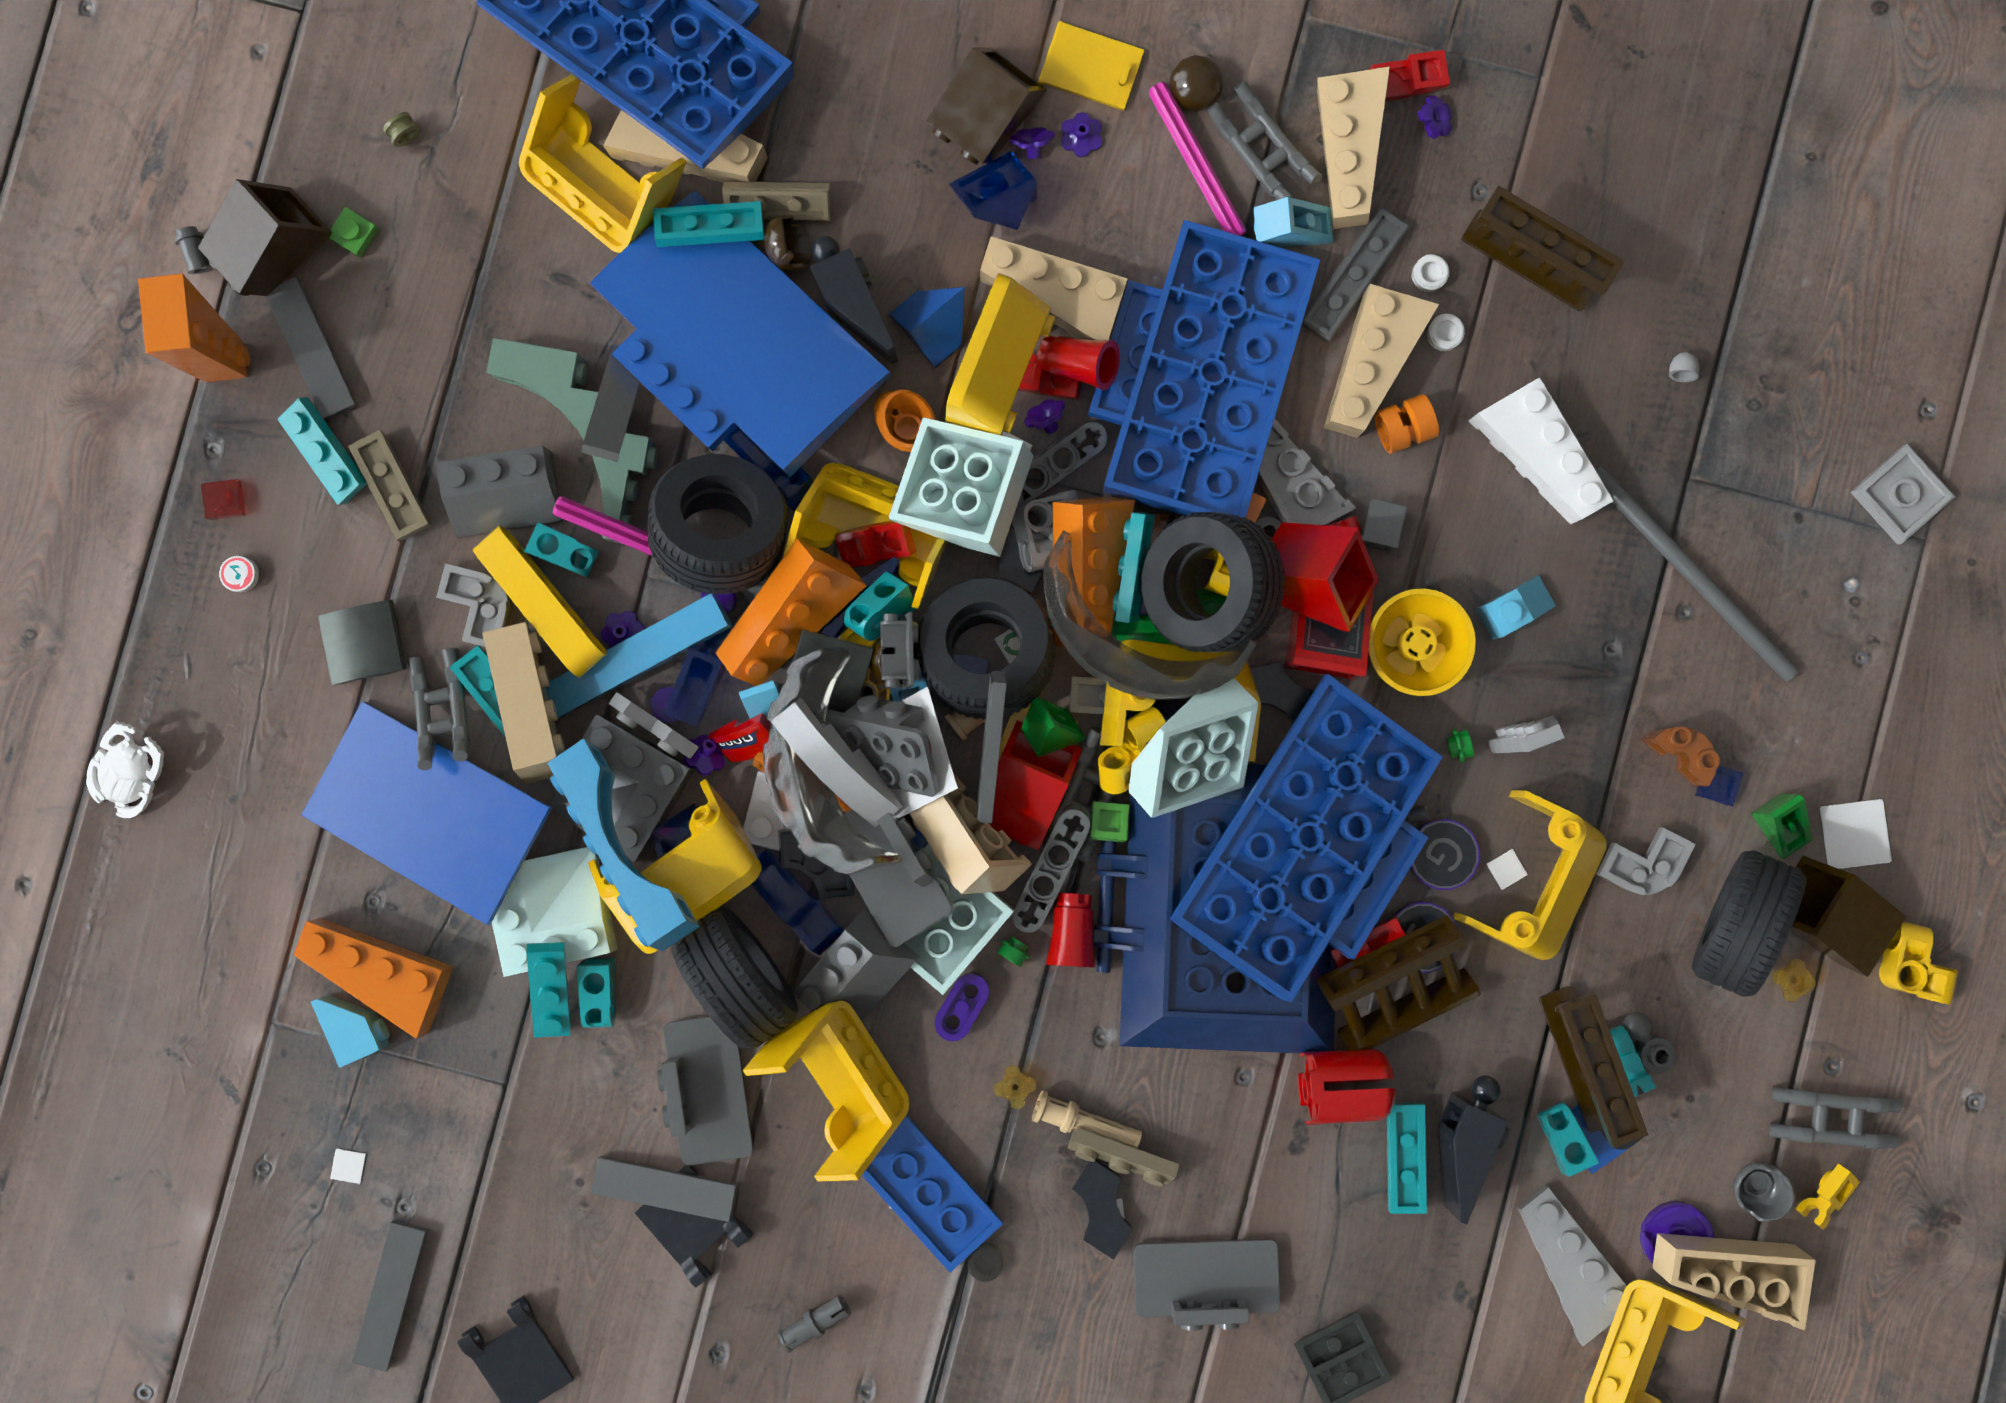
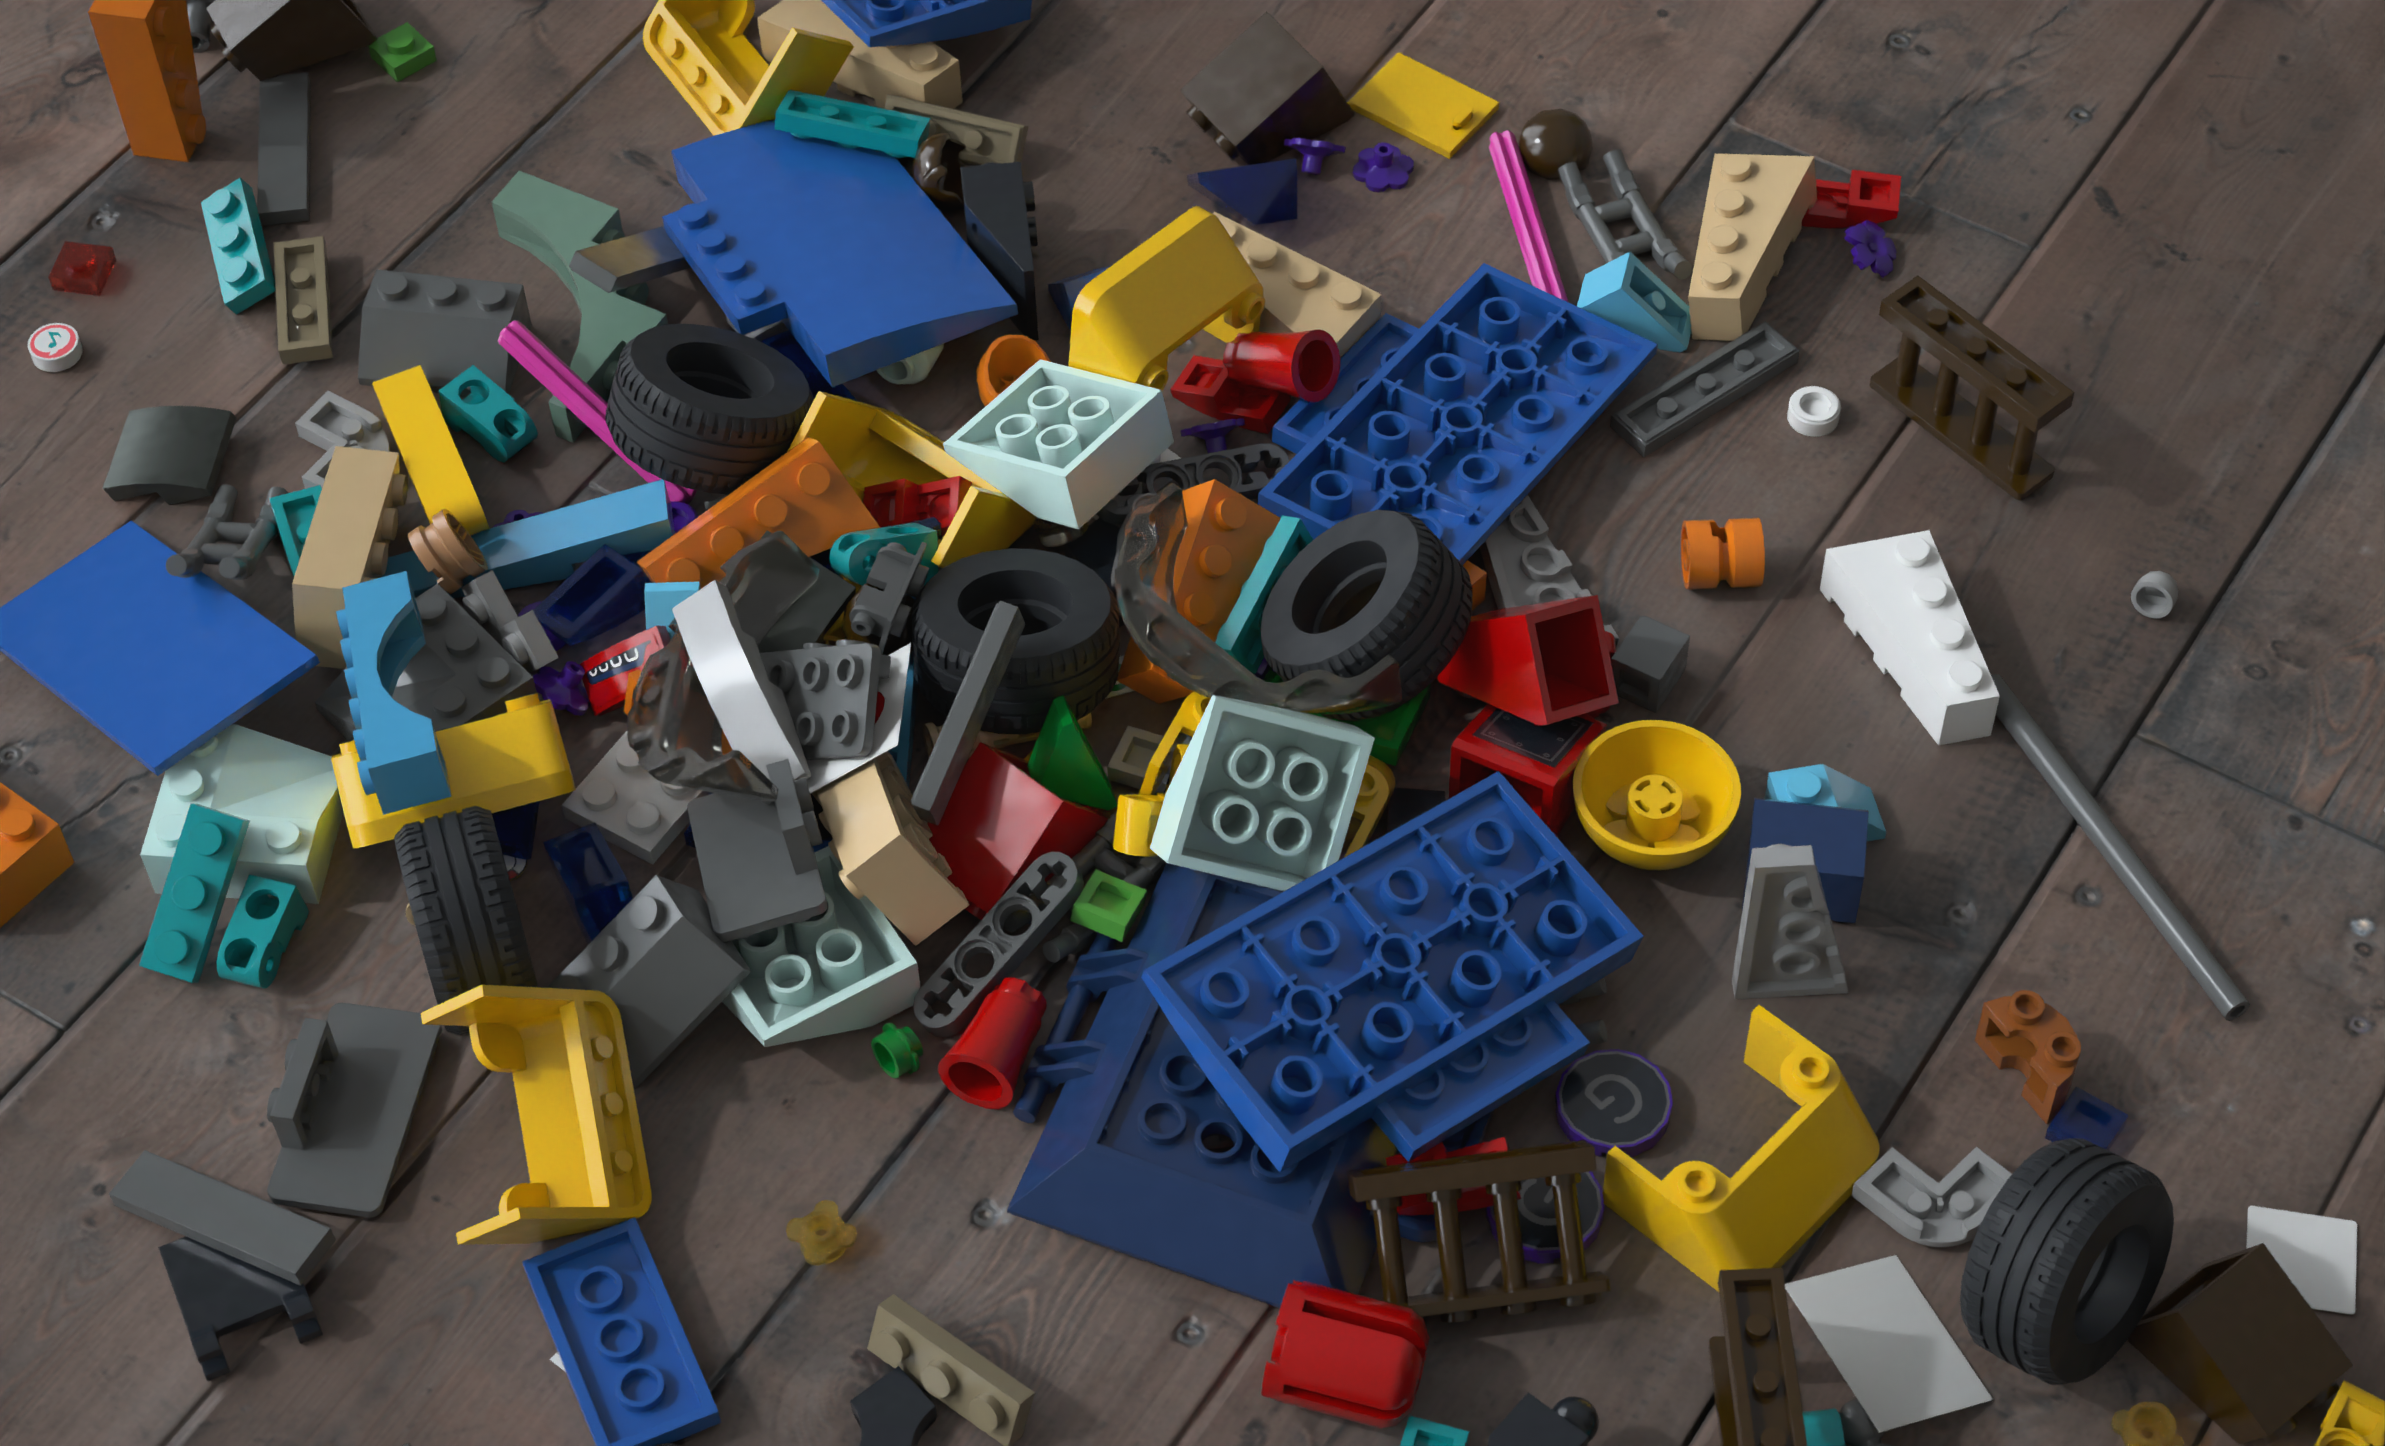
camera: 15 degrees right, 35 degrees down
(593, 692) = (447, 550): none -> medium nougat wheel
(826, 880) = (646, 833): black tile -> none
(962, 1006) = (783, 1100): dark purple plate -> none
(1069, 1117) = (874, 1283): tan pin -> none
(1378, 347) = (1702, 467): tan wedge -> none
(1445, 332) = (1815, 479): white tile -> none
(1460, 745) = (1683, 964): green plate -> none
(1507, 869) = (1714, 1150): white sticker -> none
(1521, 655) = (1837, 842): none -> dark blue slope
(1640, 971) = (1887, 1343): none -> white sticker
(1785, 823) = (2188, 1176): green slope -> none

